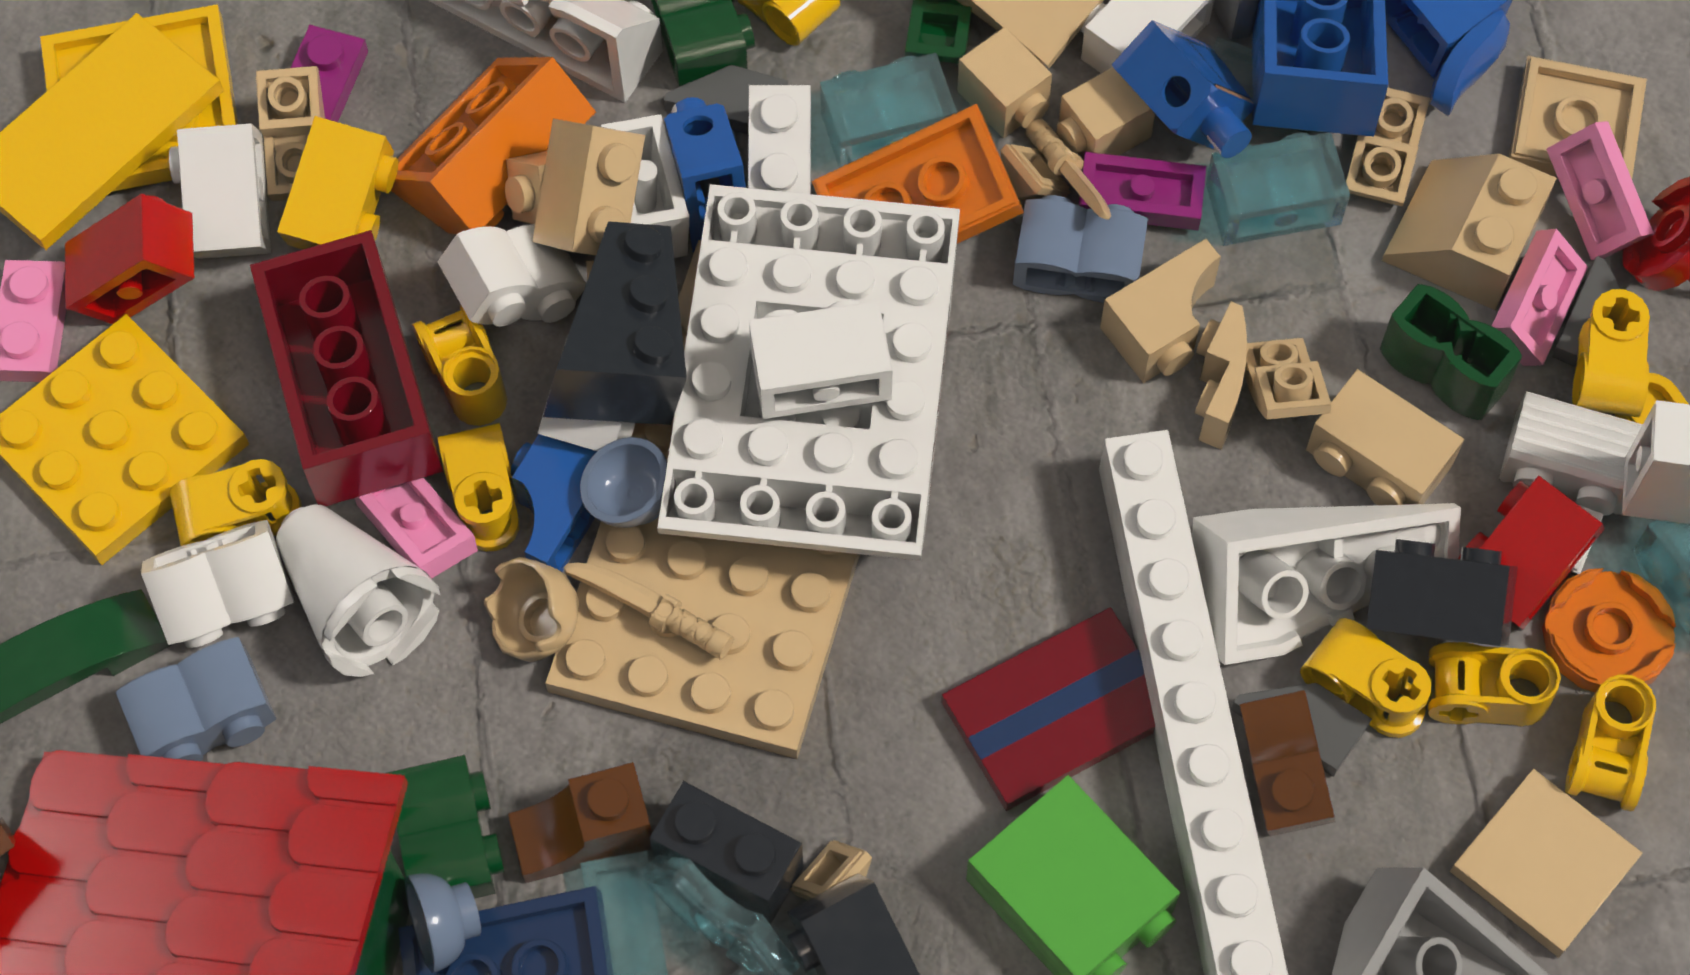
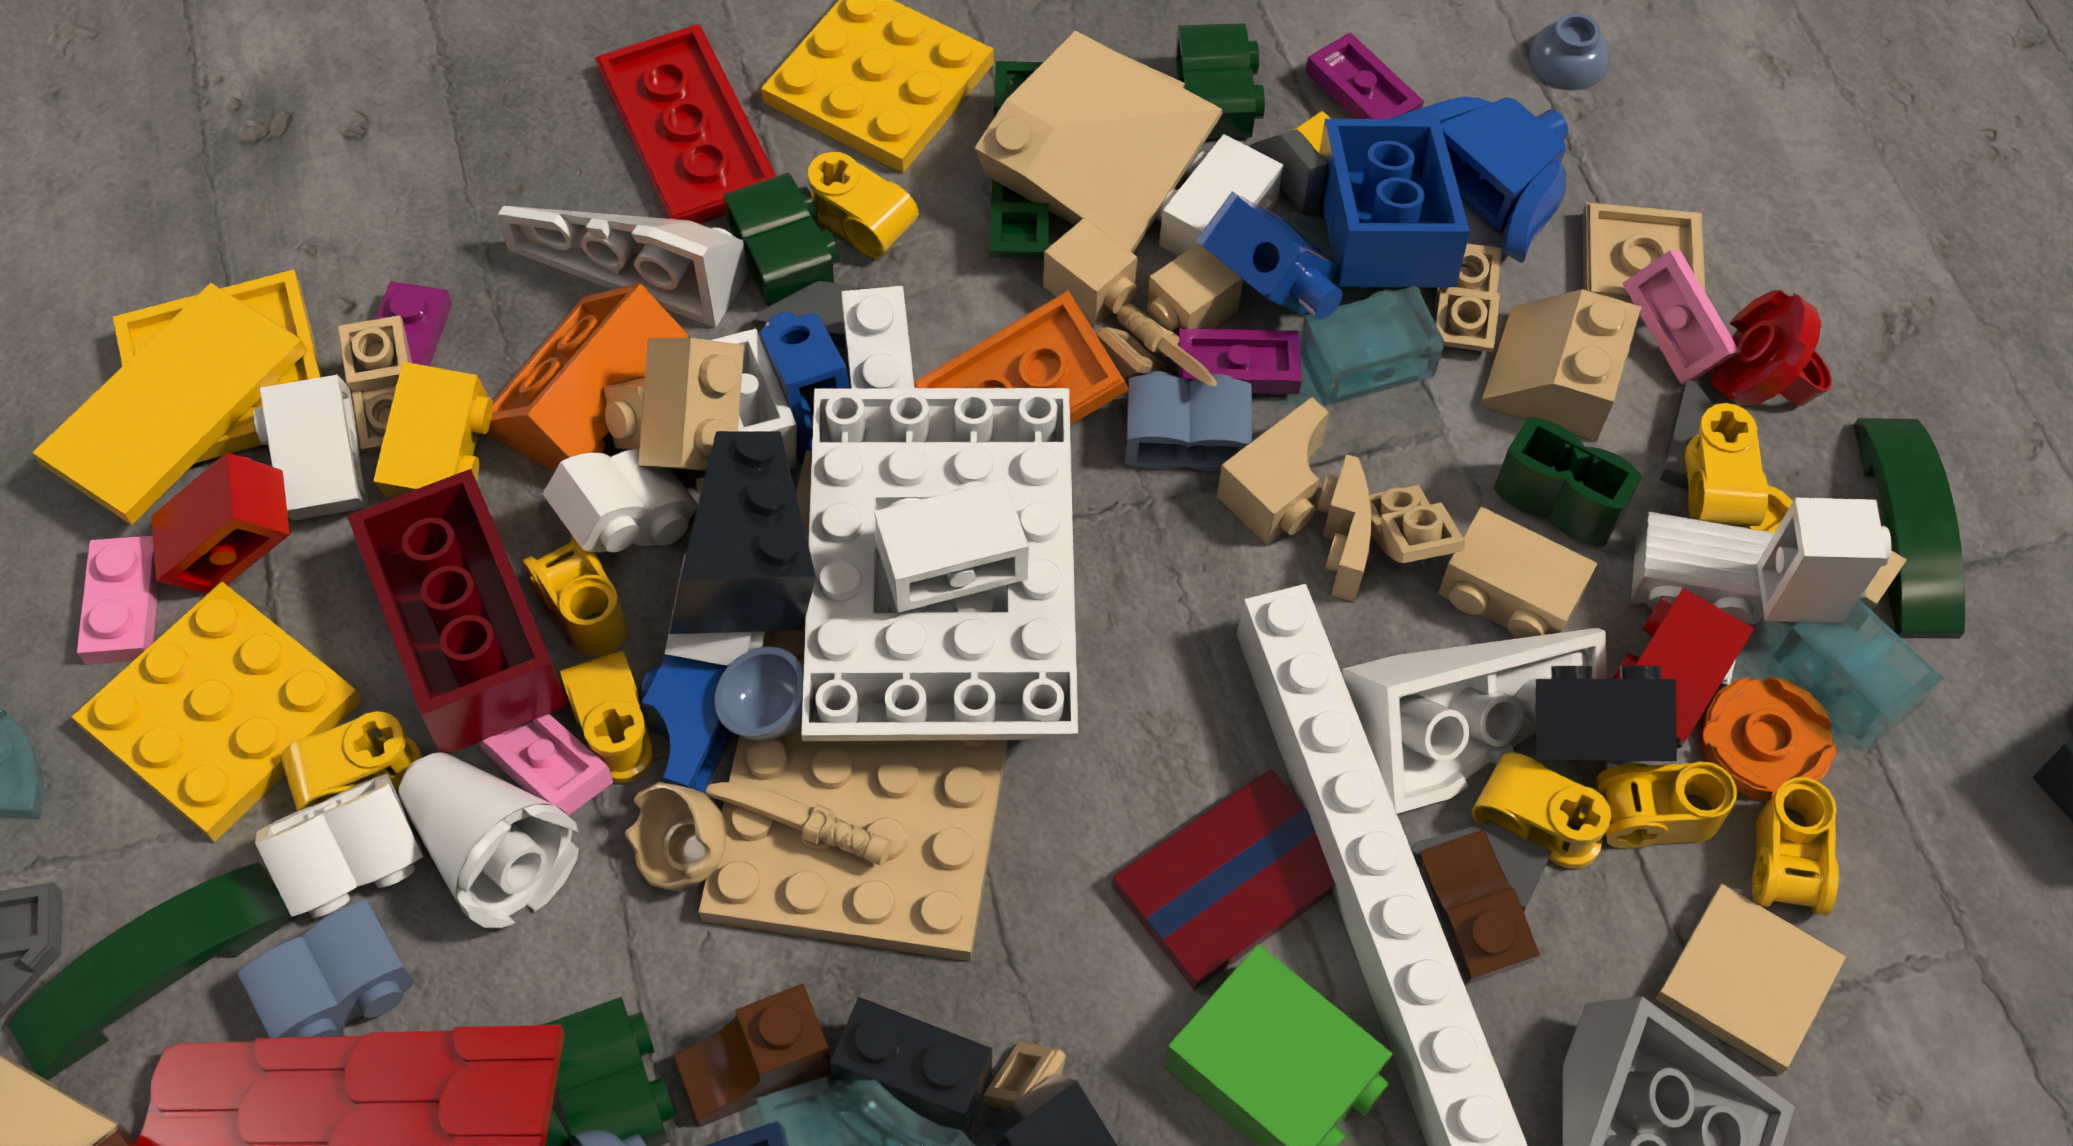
camera: 10 degrees left, 5 degrees down
(883, 105) = (973, 303): clear light blue brick -> none
(1540, 295) = (1642, 418): bright pink plate -> none

